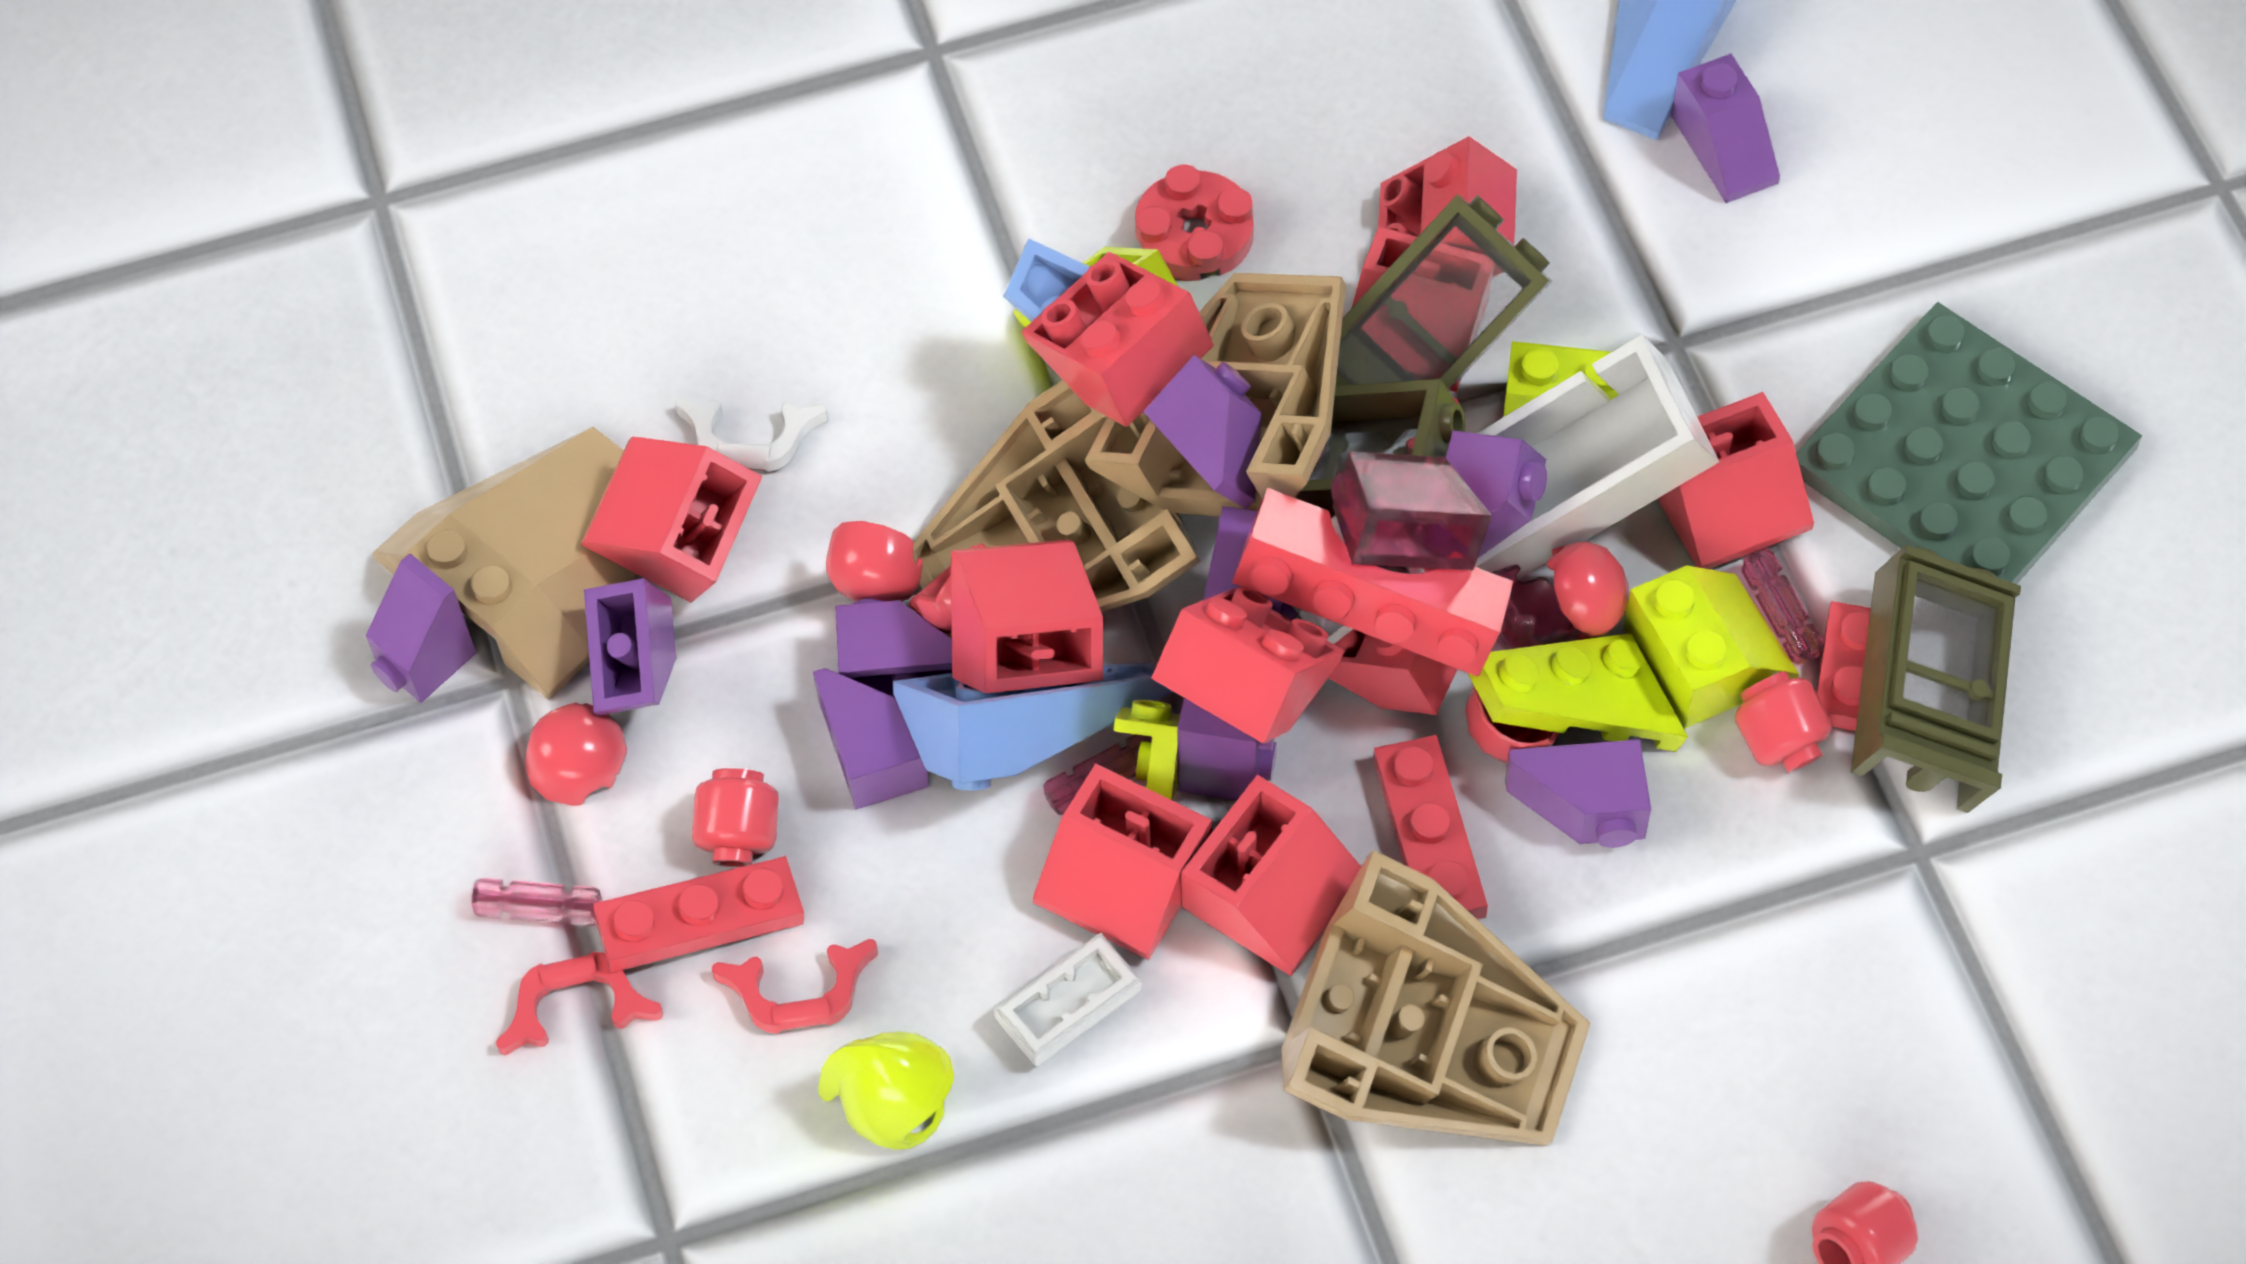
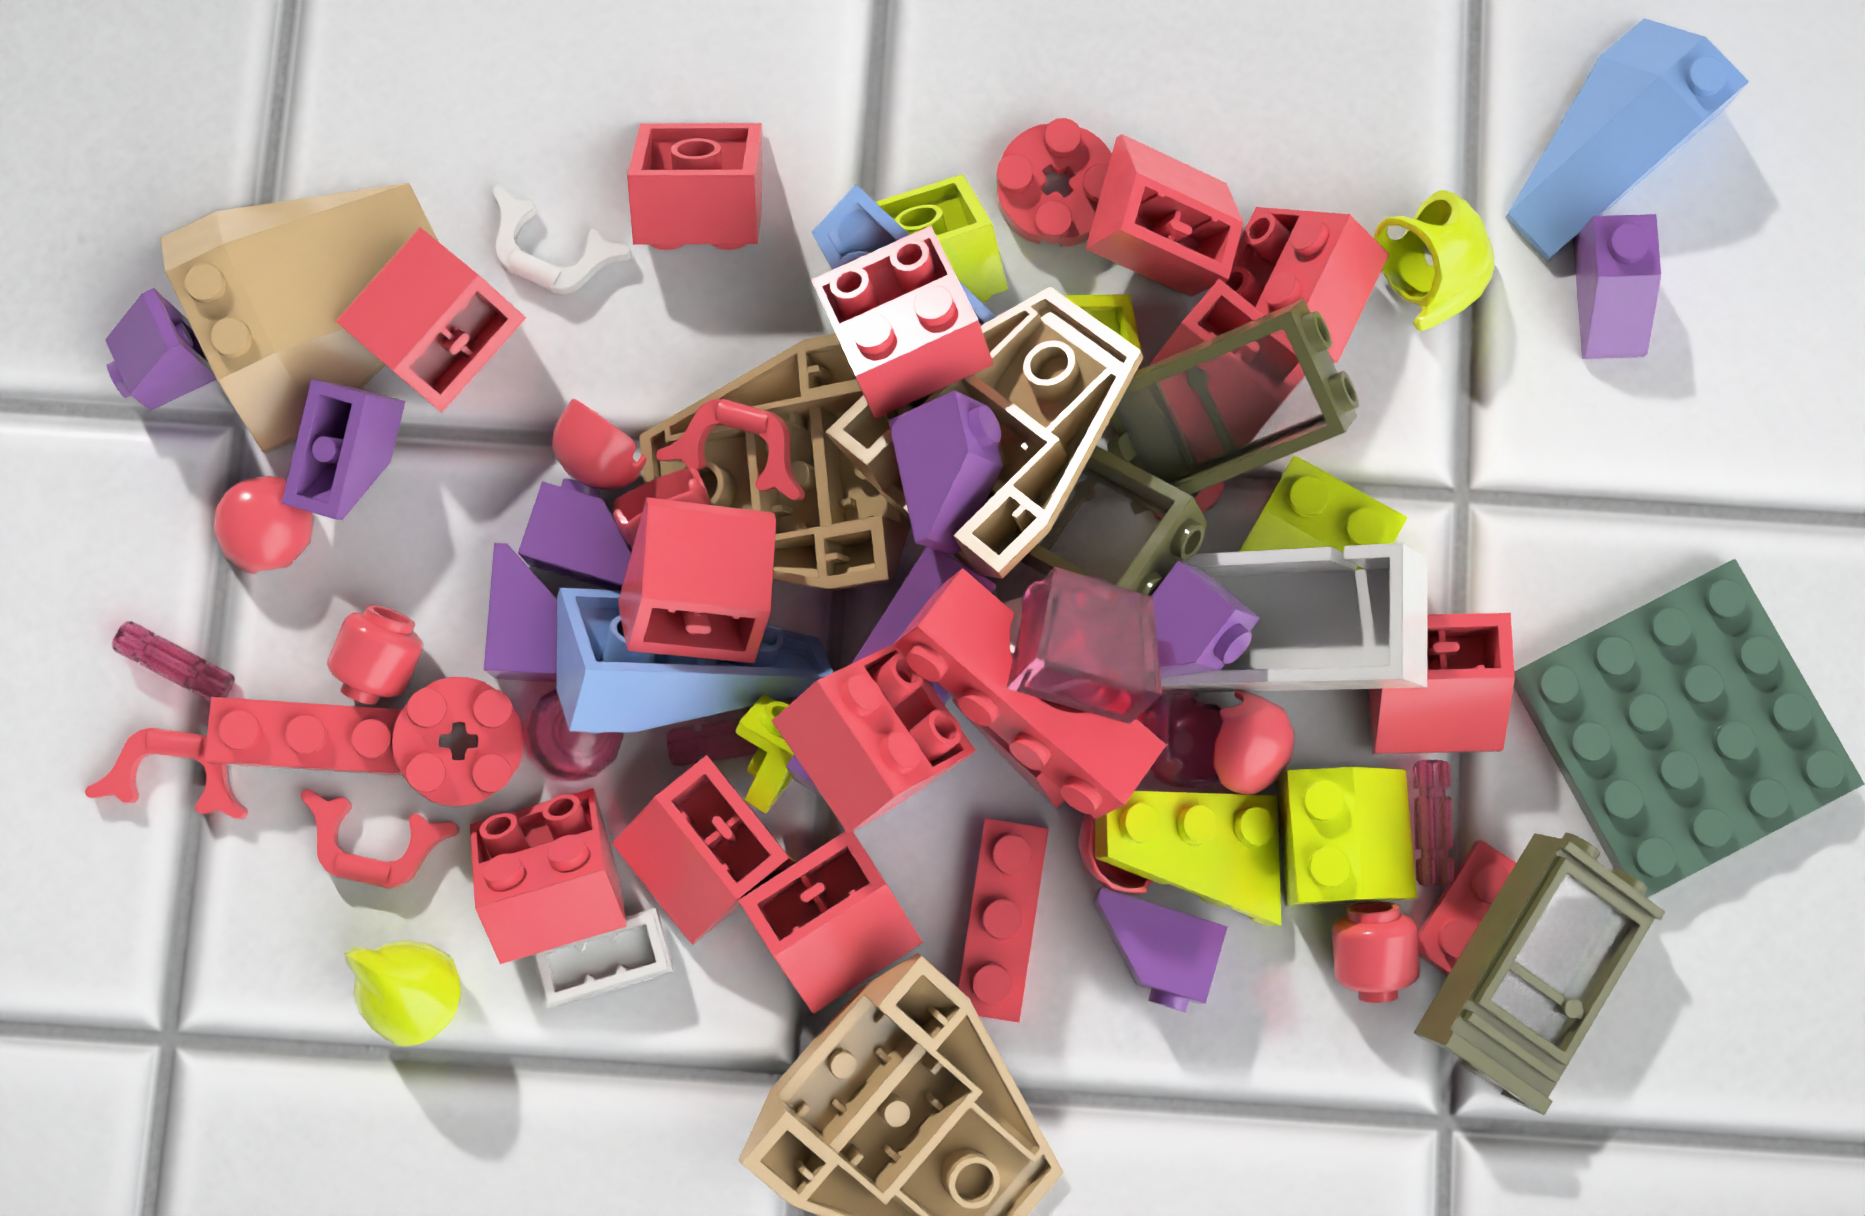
camera: 20 degrees right, 20 degrees up
(854, 829) = (430, 768): none -> coral plate
(870, 332) = (696, 185): none -> coral slope
(950, 825) = (561, 752): none -> clear pink hair
(984, 944) = (545, 876): none -> coral slope
(997, 488) = (768, 425): none -> coral helmet
(1307, 212) = (1165, 219): none -> coral slope
(1571, 140) = (1459, 254): none -> neon yellow piece

